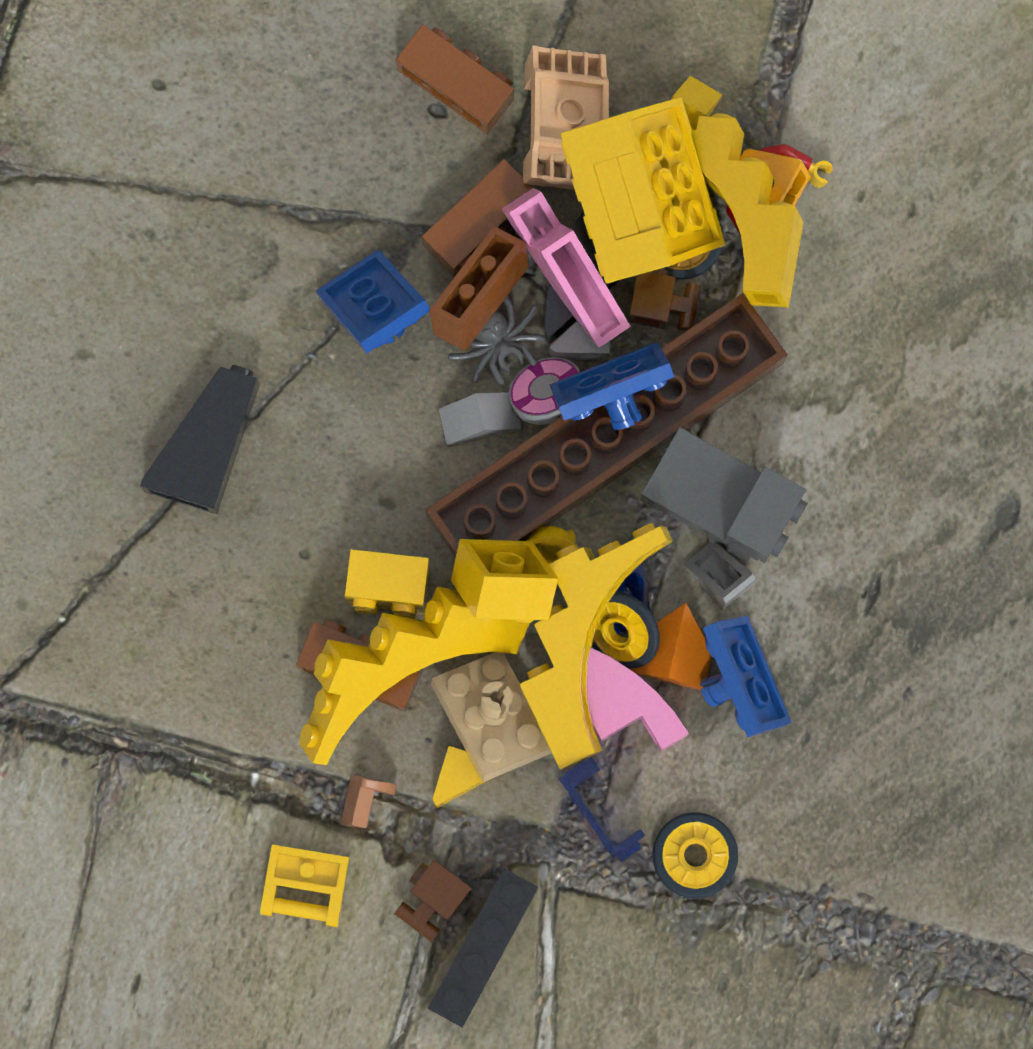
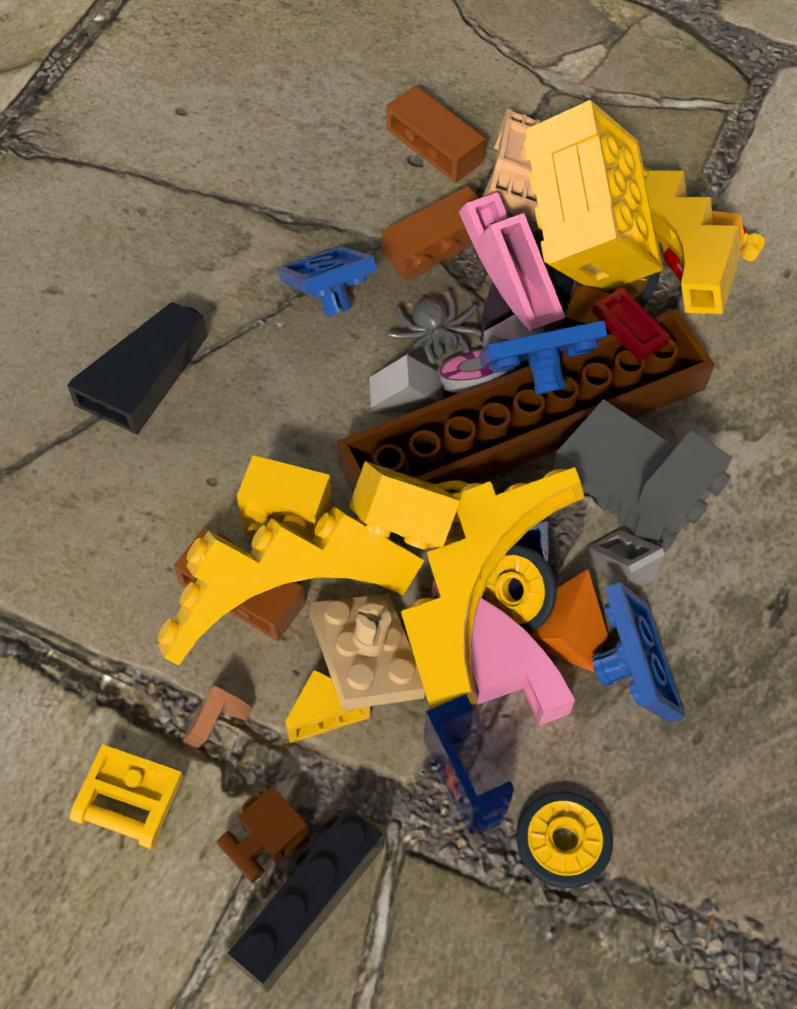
camera: 10 degrees right, 20 degrees down
(479, 288) = (425, 271): dark orange brick -> none
(698, 323) = (631, 324): none -> dark red tile

